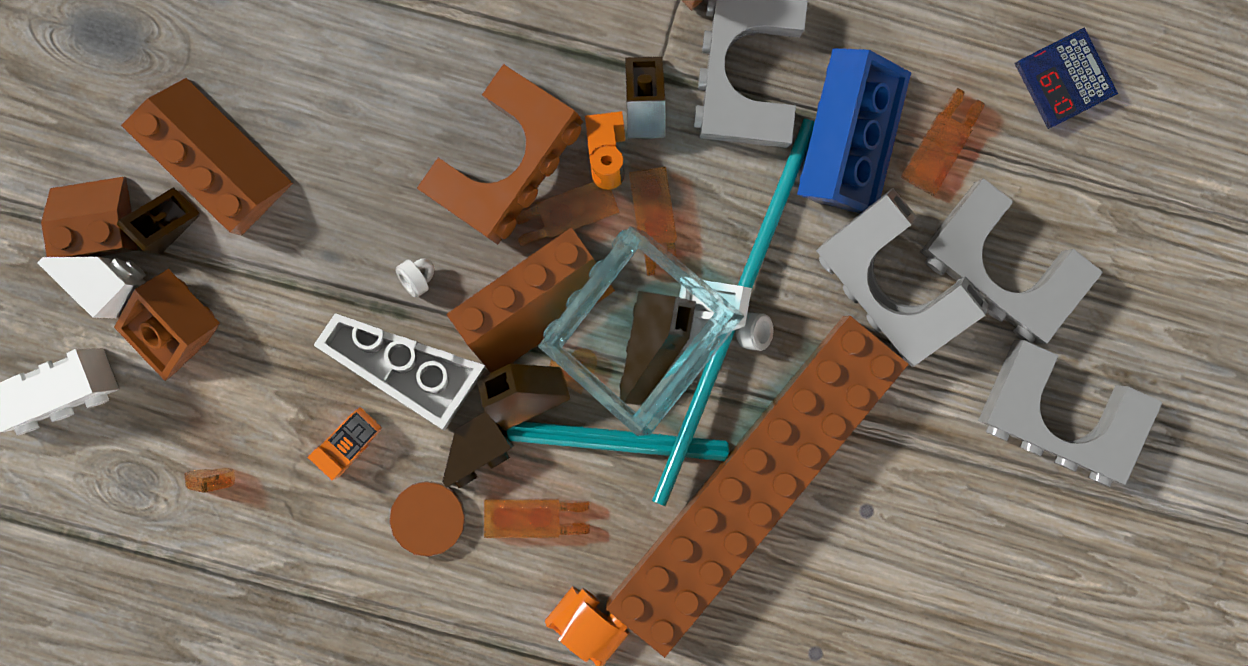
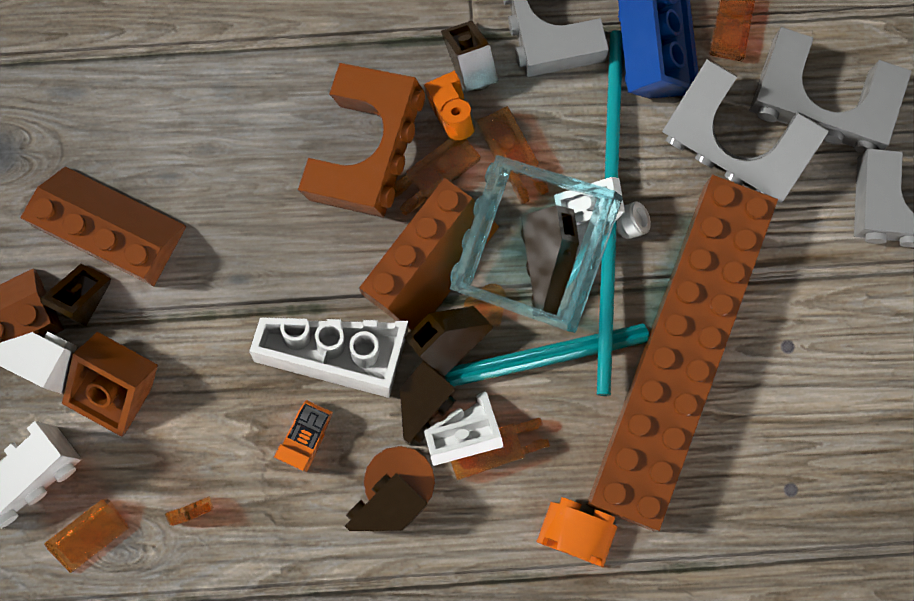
camera: 20 degrees left, 10 degrees down
(102, 469) = (87, 535): none -> clear orange slope
(407, 547) = (389, 509): none -> dark brown slope
(412, 278) = (317, 270): white tile -> none
(505, 495) = (464, 433): none -> white wing

